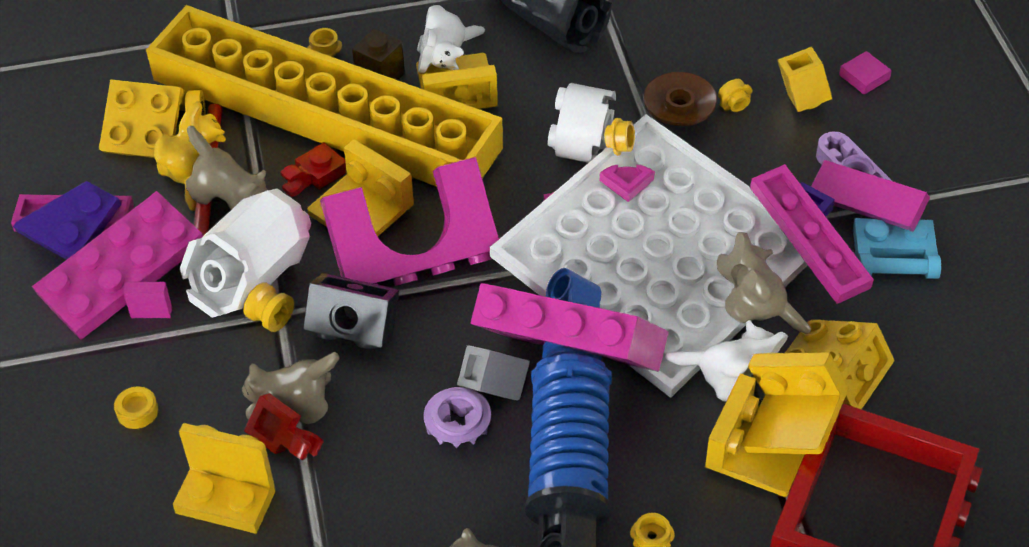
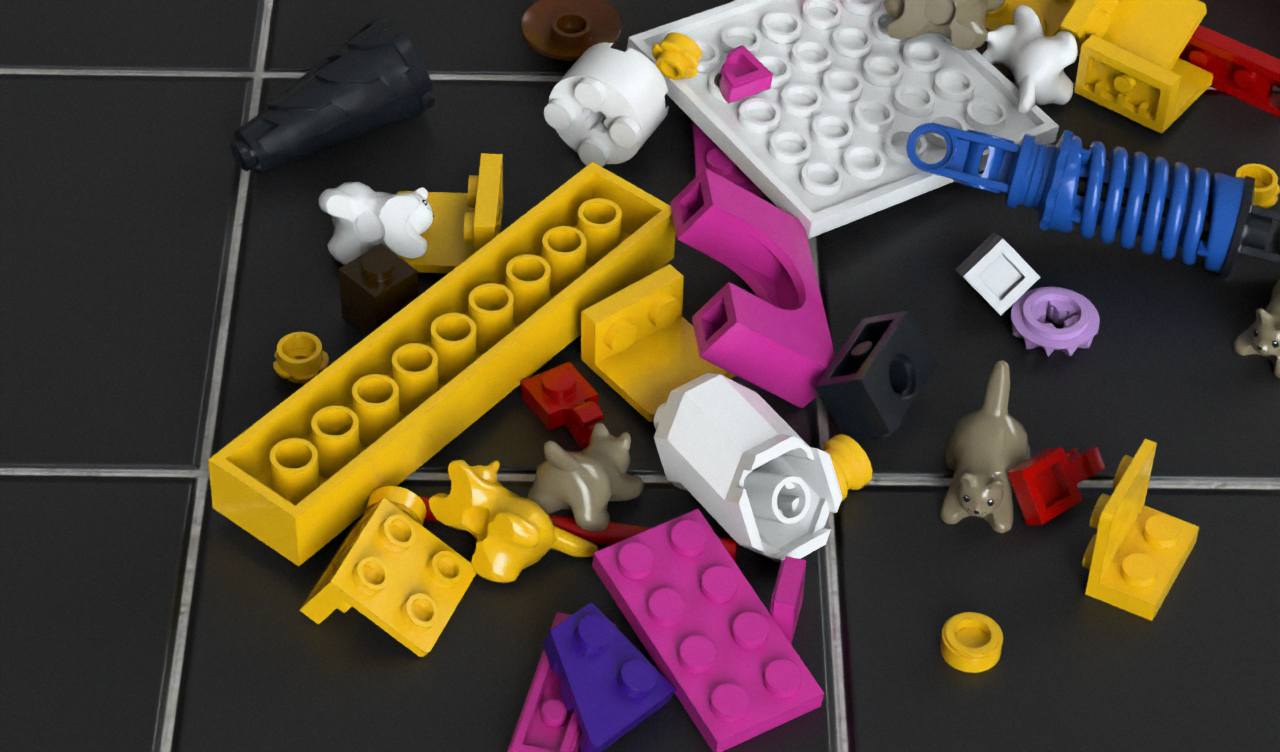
camera: 80 degrees left, 5 degrees down
(570, 324) = (1019, 131): dark pink arch -> none

